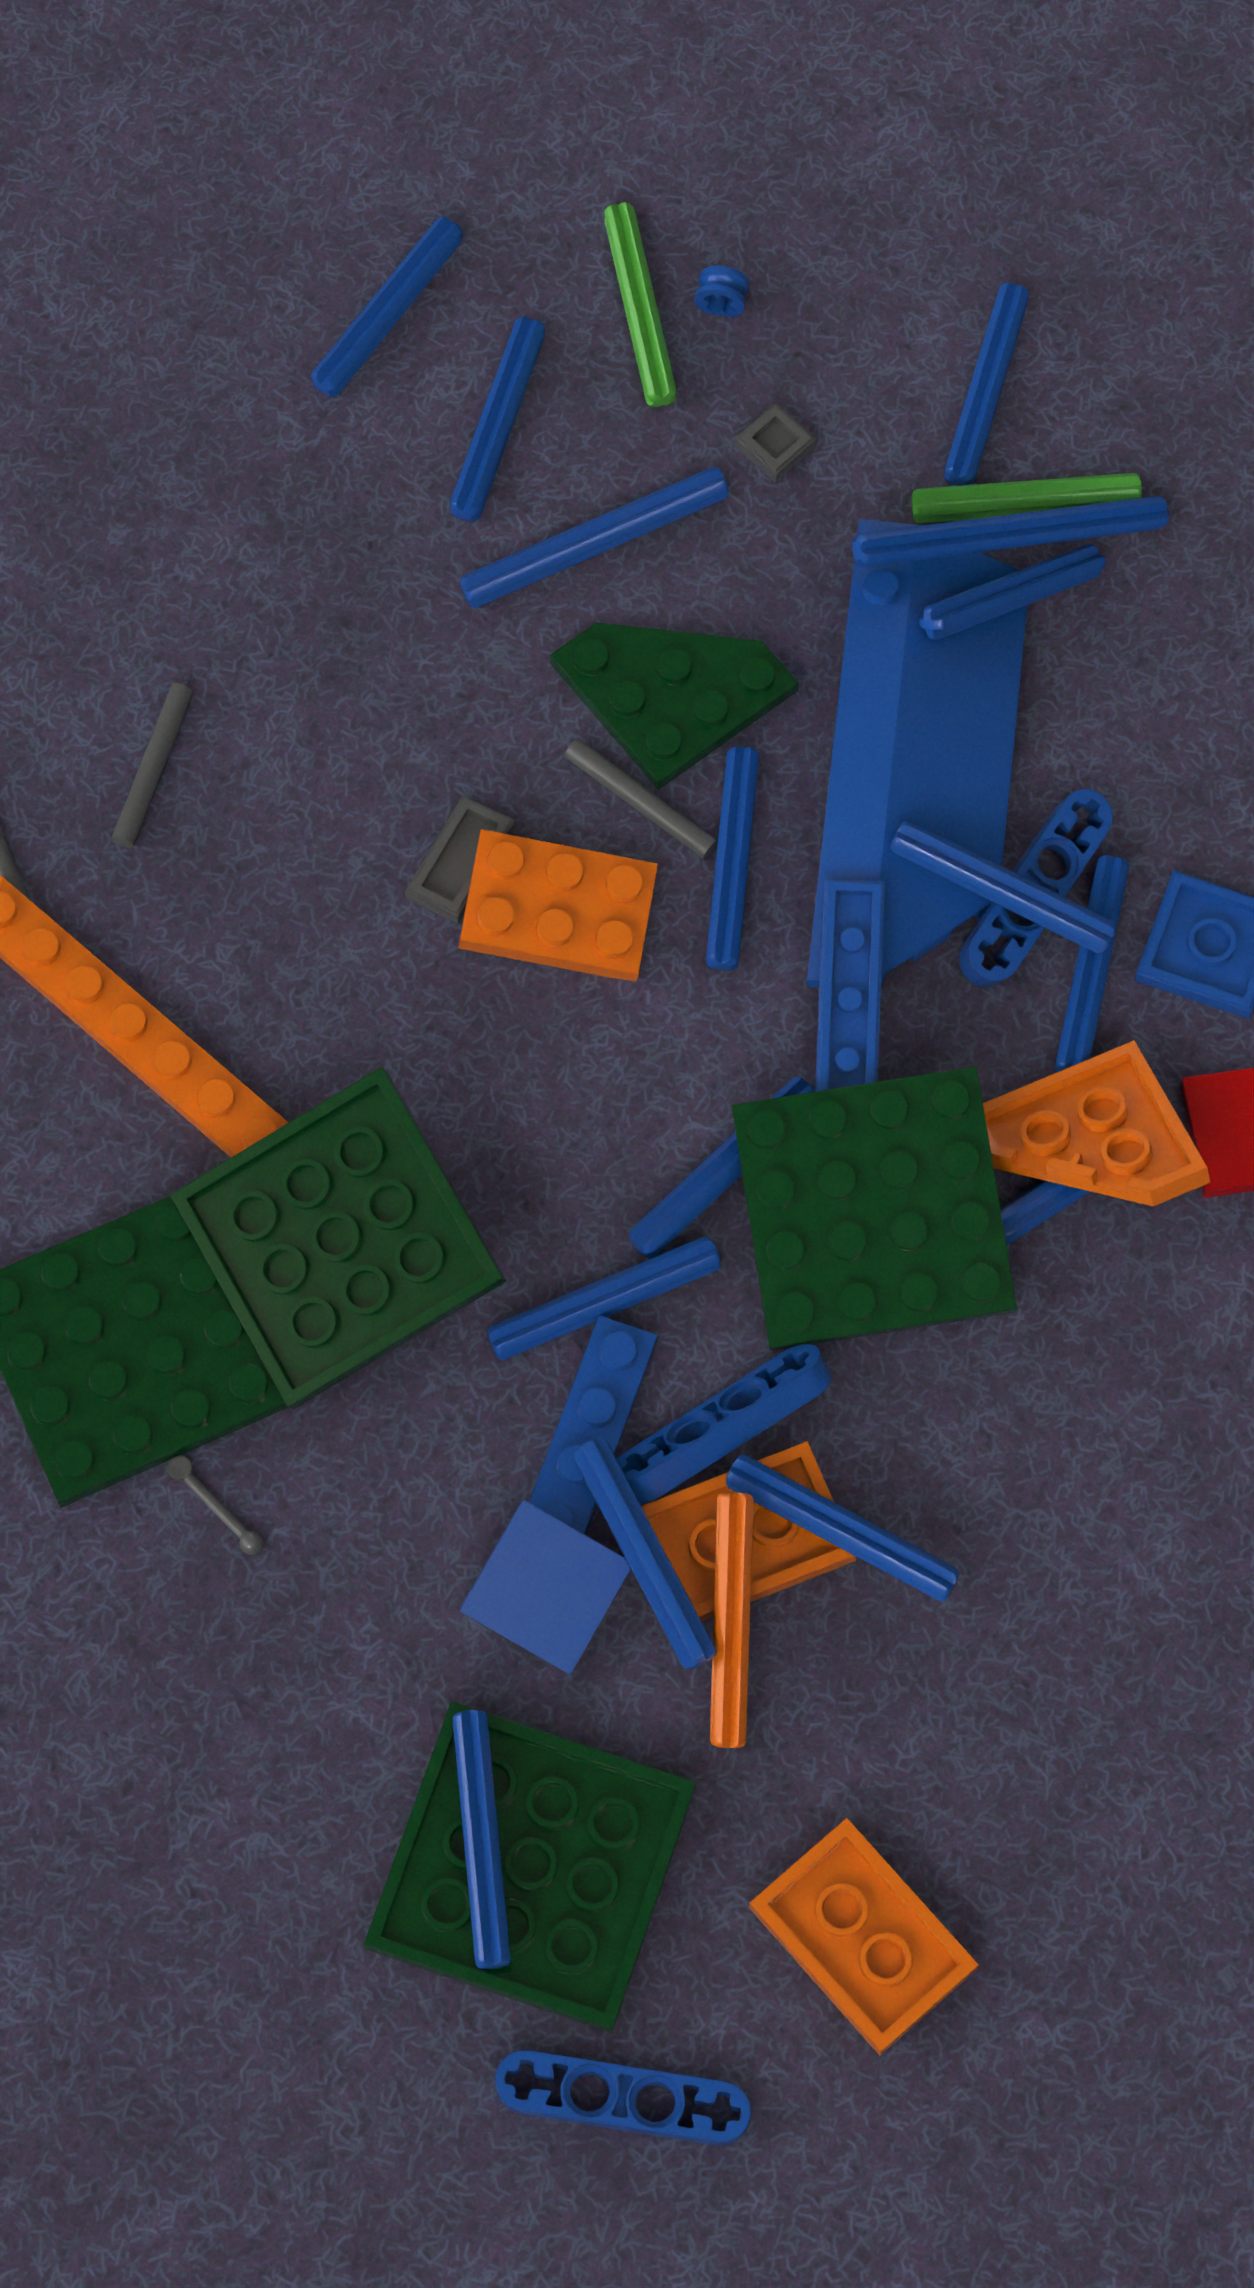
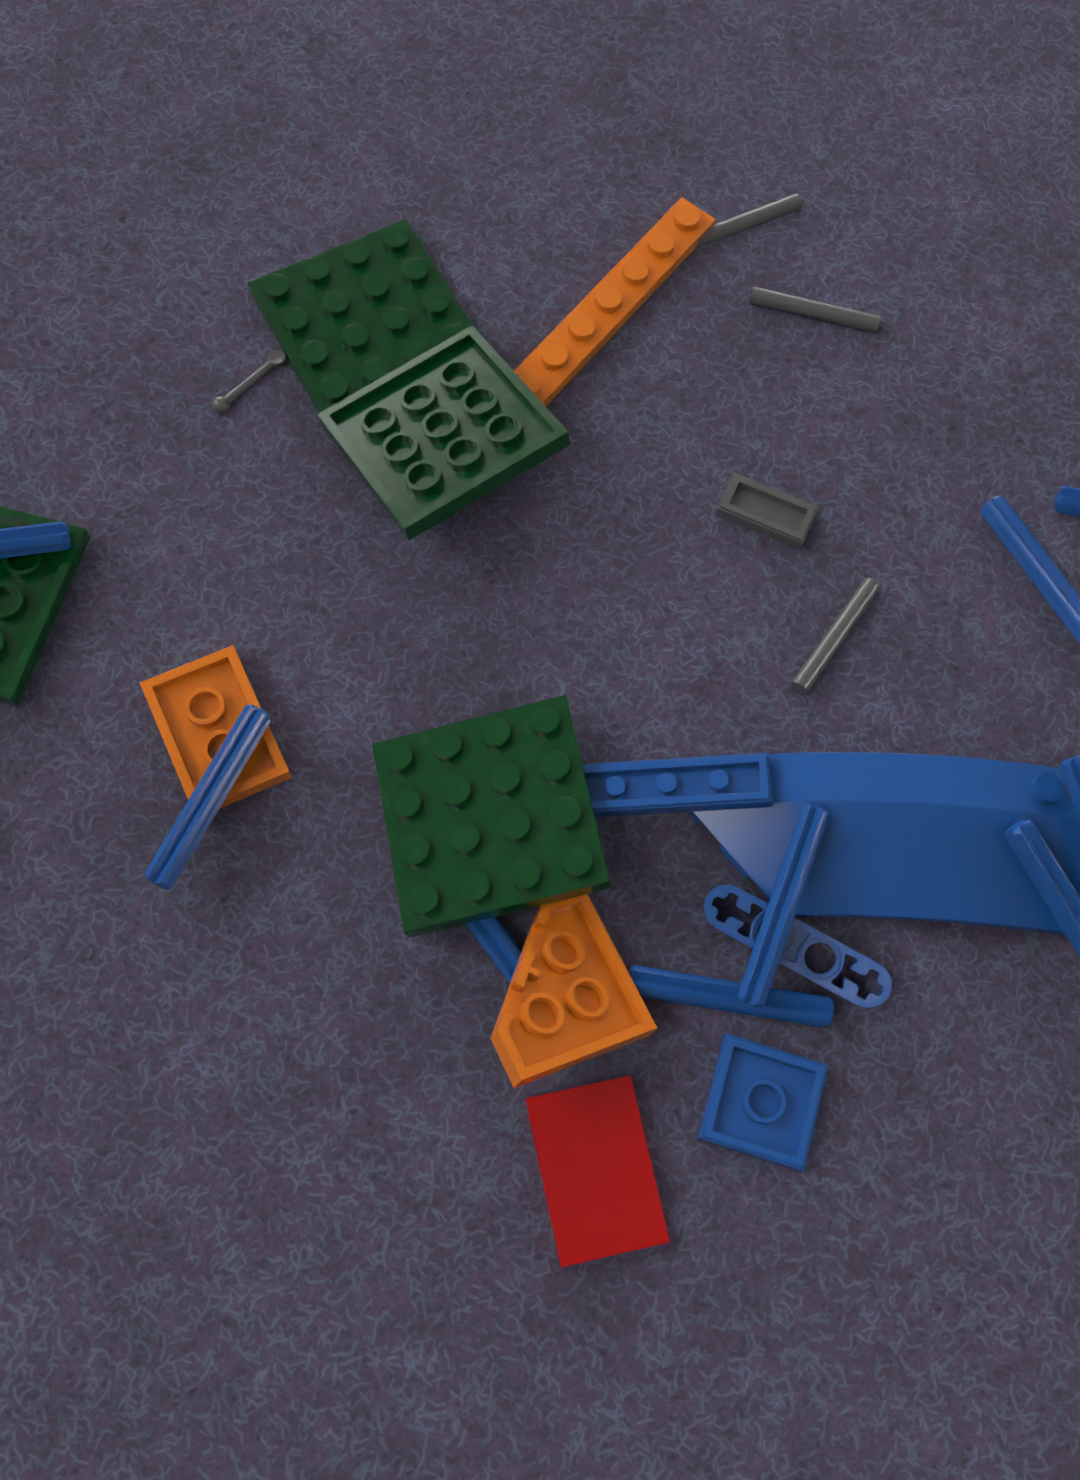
camera: 80 degrees right, 0 degrees up
(546, 1586) = (172, 587): blue tile -> none
(558, 905) = (734, 576): orange plate -> none
(594, 1409) = (296, 618): blue plate -> none
(603, 1298) = (413, 626): blue axle -> none
(644, 1553) = (188, 649): blue axle -> none
(671, 692) = (933, 655): dark green plate -> none
(696, 1190) = (505, 688): blue axle -> none
(725, 1421) = (335, 752): blue beam -> none
(731, 1620) = (138, 716): orange axle -> none
(732, 859) = (793, 703): blue axle -> none

